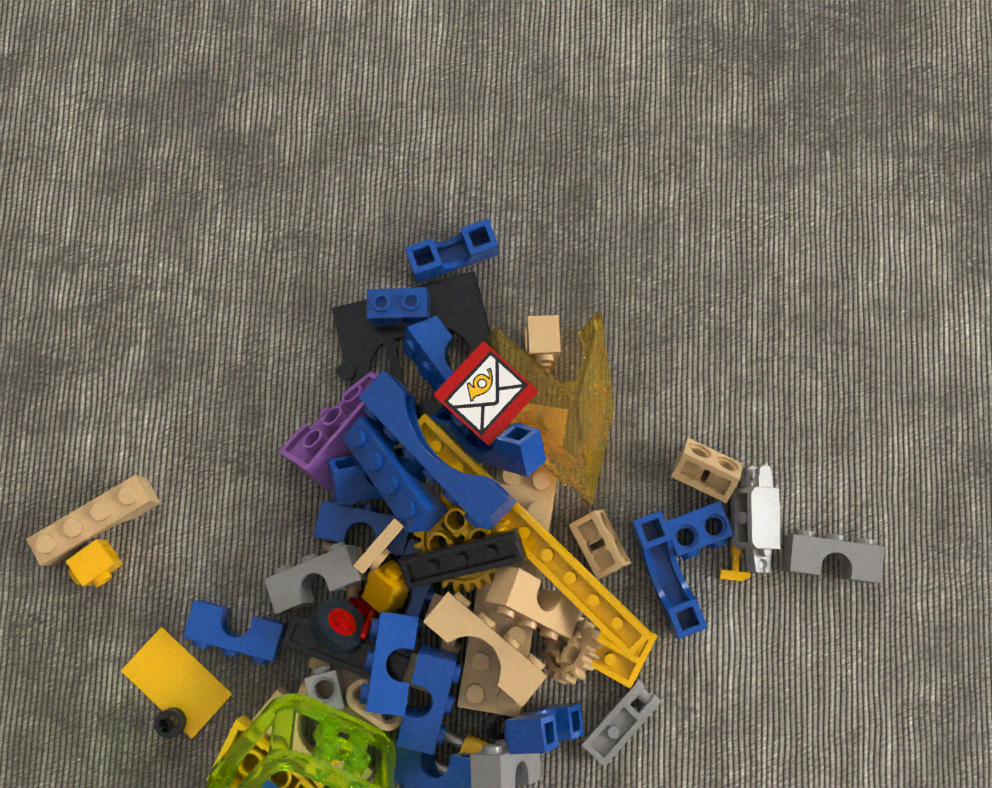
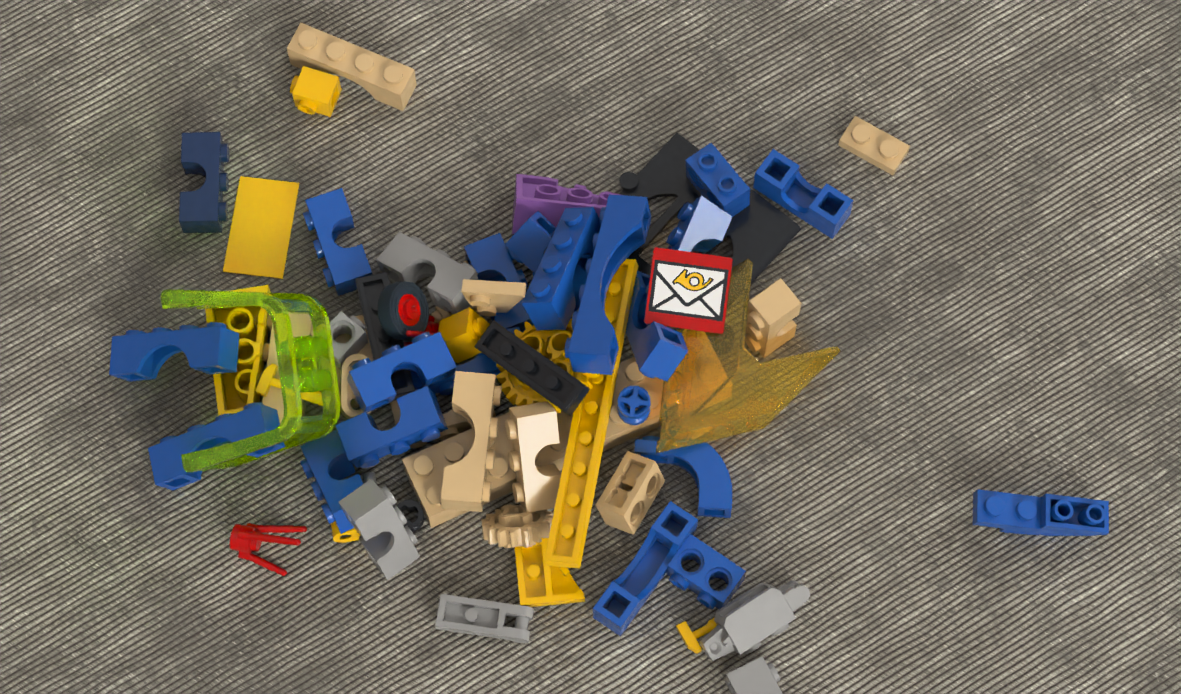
camera: 60 degrees right, 10 degrees down
(127, 719) = (204, 208): none -> dark blue arch
(161, 728) = (220, 251): black bush -> none
(446, 174) = (874, 145): none -> tan plate
(543, 728) = (433, 538): blue arch -> none
(546, 497) = (633, 397): none -> blue wheel
(620, 472) = (705, 468): none -> blue arch
(707, 470) = (766, 543): tan brick -> none
(810, 258) = (1040, 515): none -> blue slope

